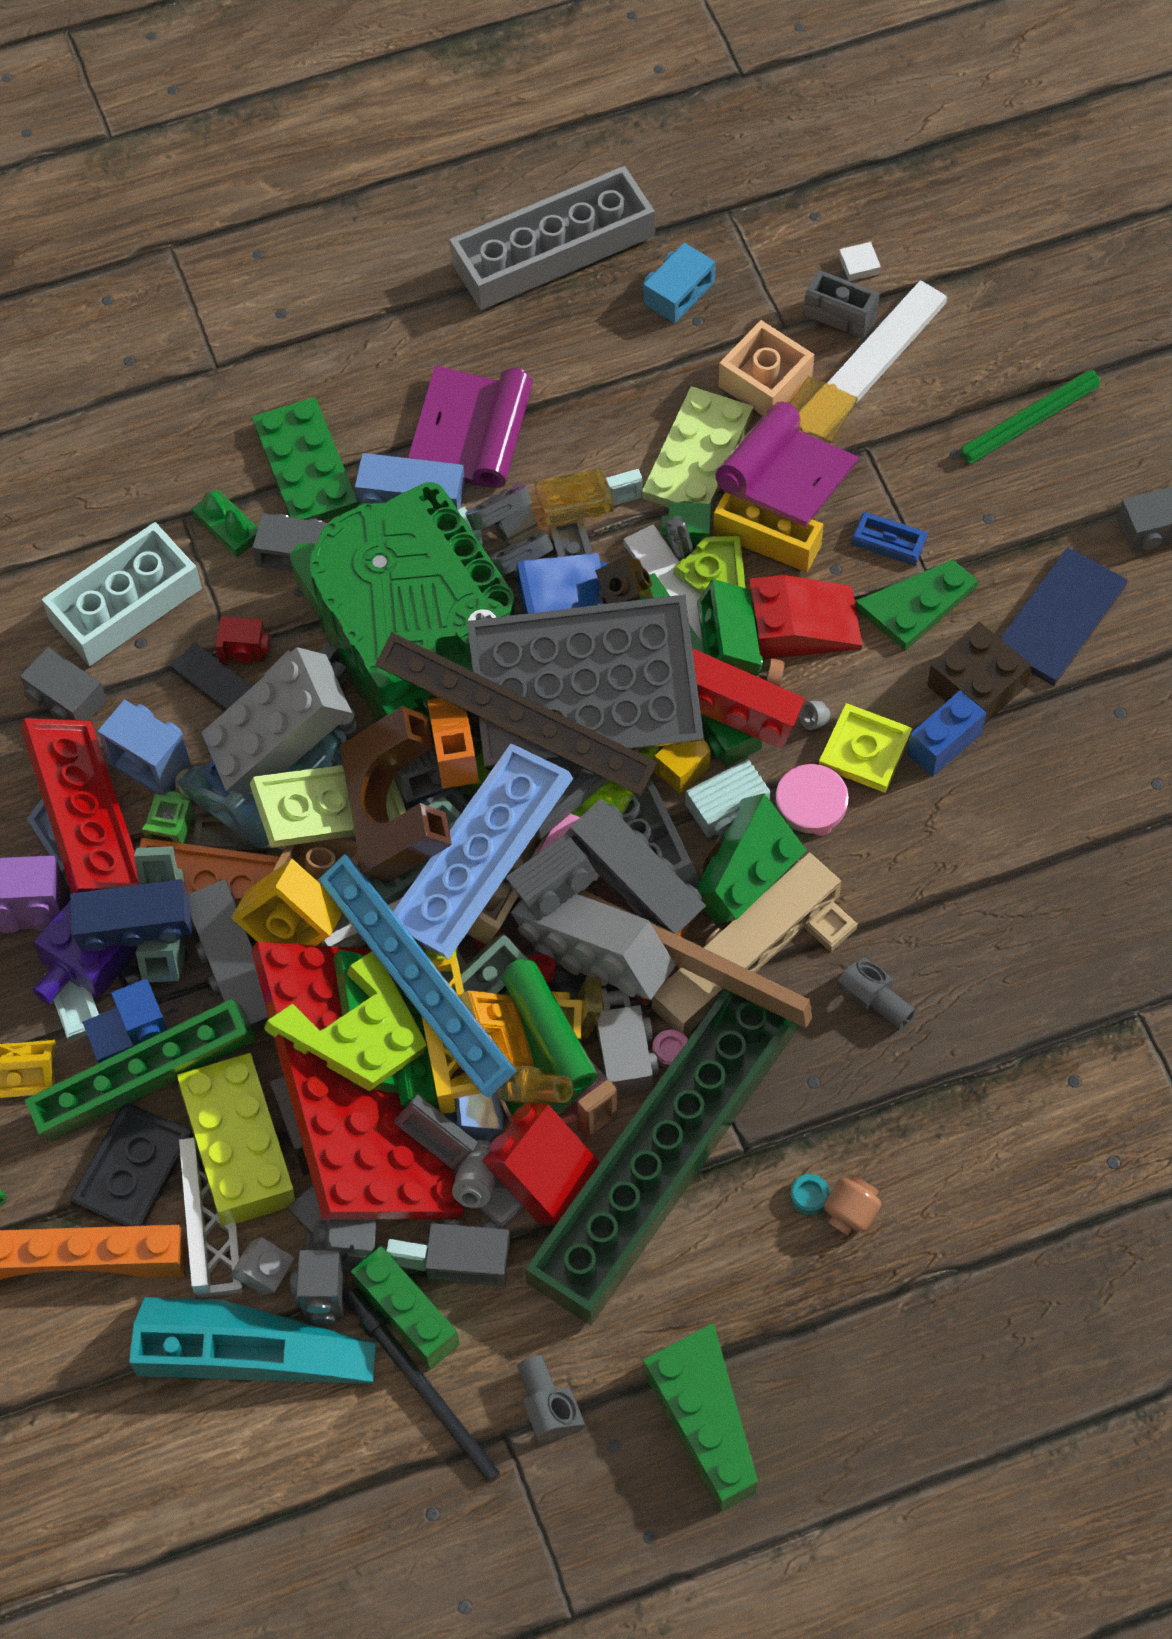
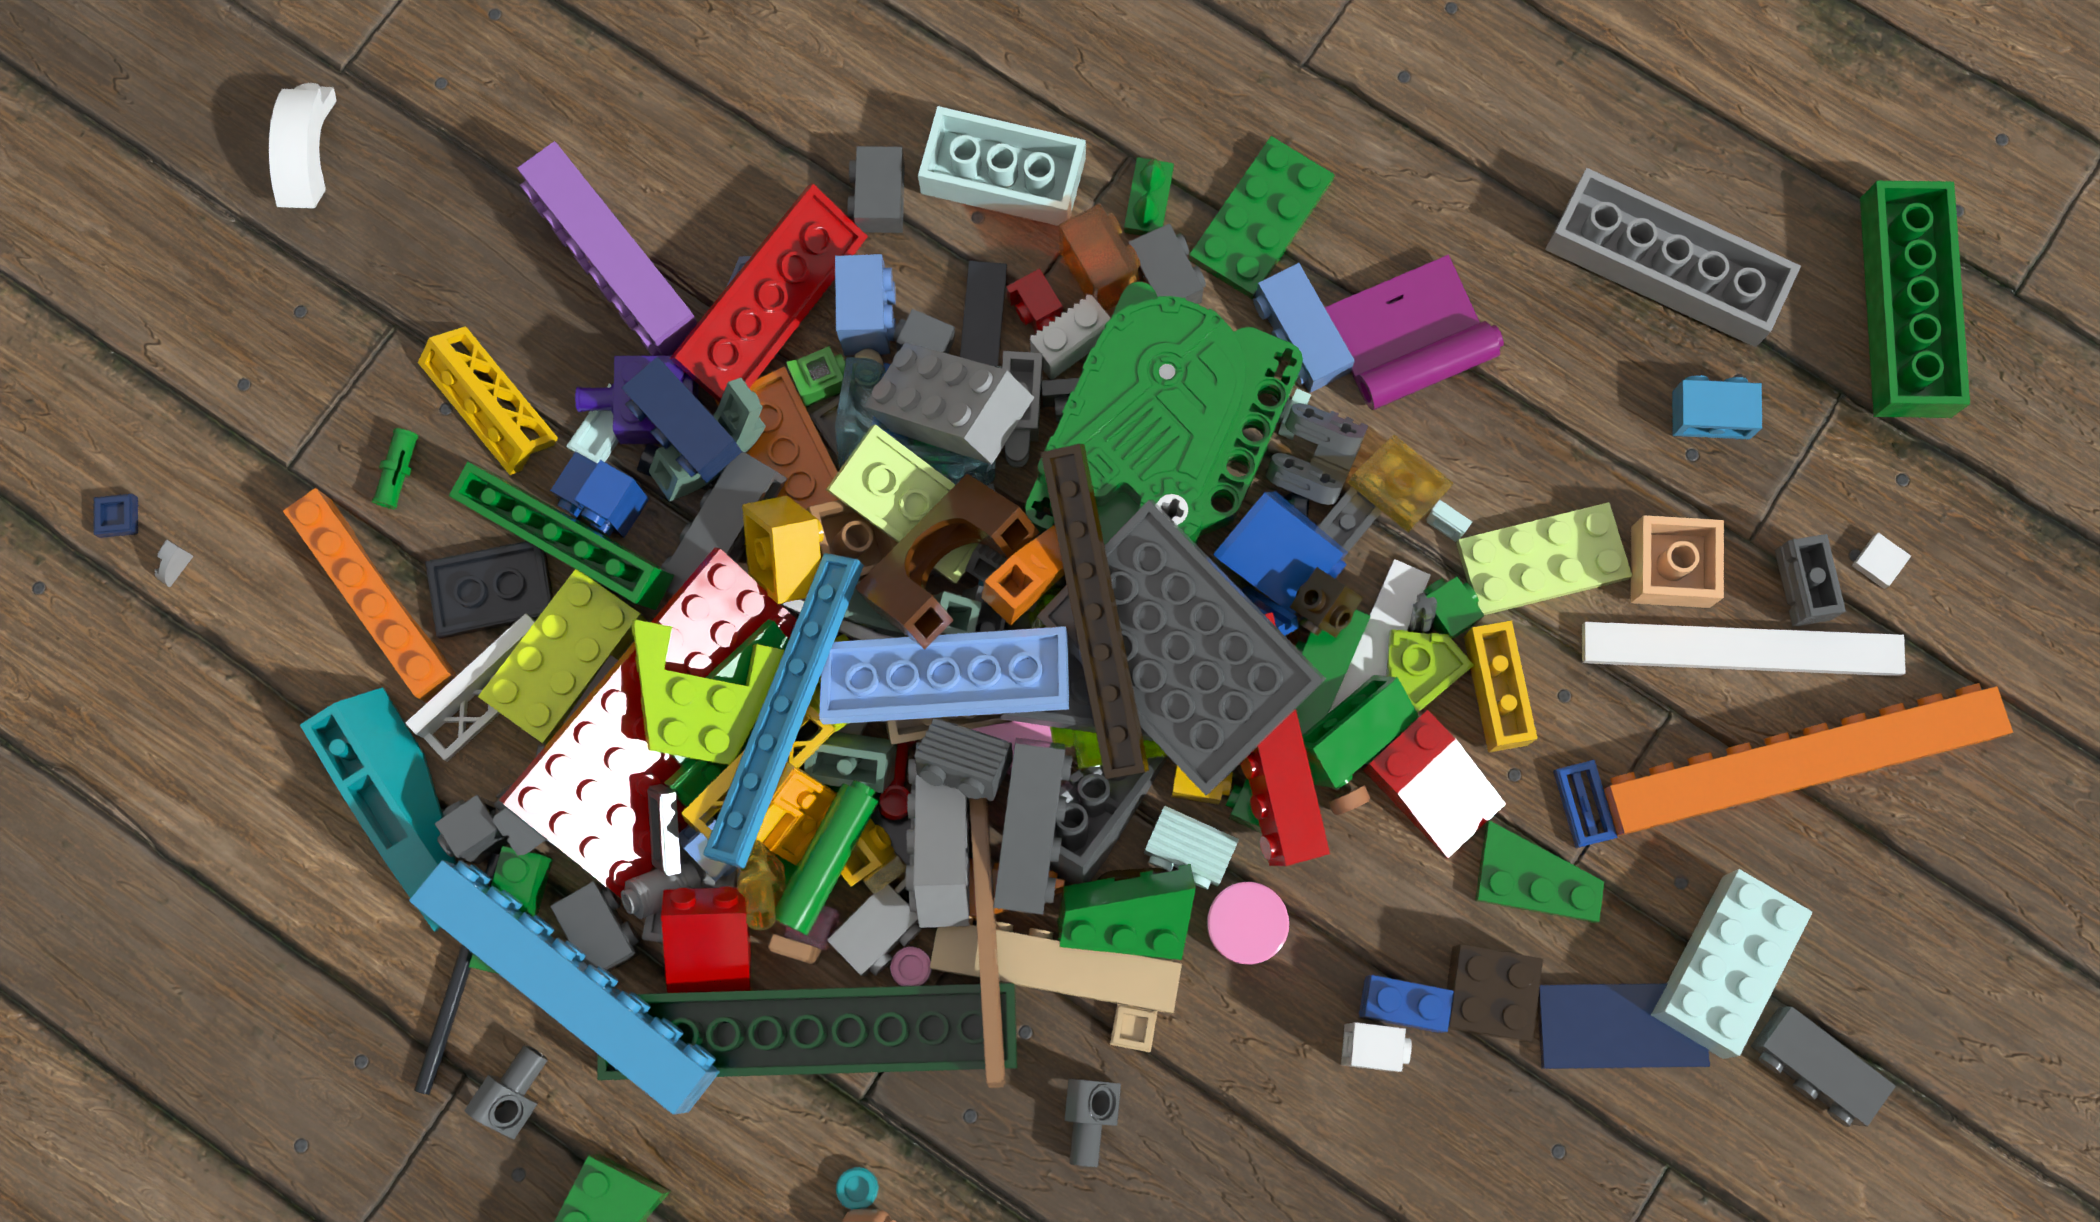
camera: 55 degrees right, 15 degrees up
(195, 722) = (924, 332): none -> dark grey brick
(248, 574) = (1098, 255): none -> clear orange brick
(262, 1266) = (465, 766): light grey brick -> none
(286, 624) = (1070, 336): none -> white brick
(408, 1254) = (559, 877): light aqua tile -> none
(504, 1268) = (565, 986): none -> dark azure brick
(700, 125) = (1914, 299): none -> green brick
(781, 465) = (1575, 652): magenta door -> none
(814, 715) = (1338, 865): light grey hinge -> none
(822, 408) = (1675, 641): clear yellow piece -> none
(865, 747) = (1337, 936): neon yellow plate -> none
(960, 391) = (1806, 760): none -> orange brick
(962, 767) = (1375, 1047): none -> white brick
(1029, 416) = (1829, 847): green axle -> none
(1067, 518) = (1731, 964): none -> light aqua brick

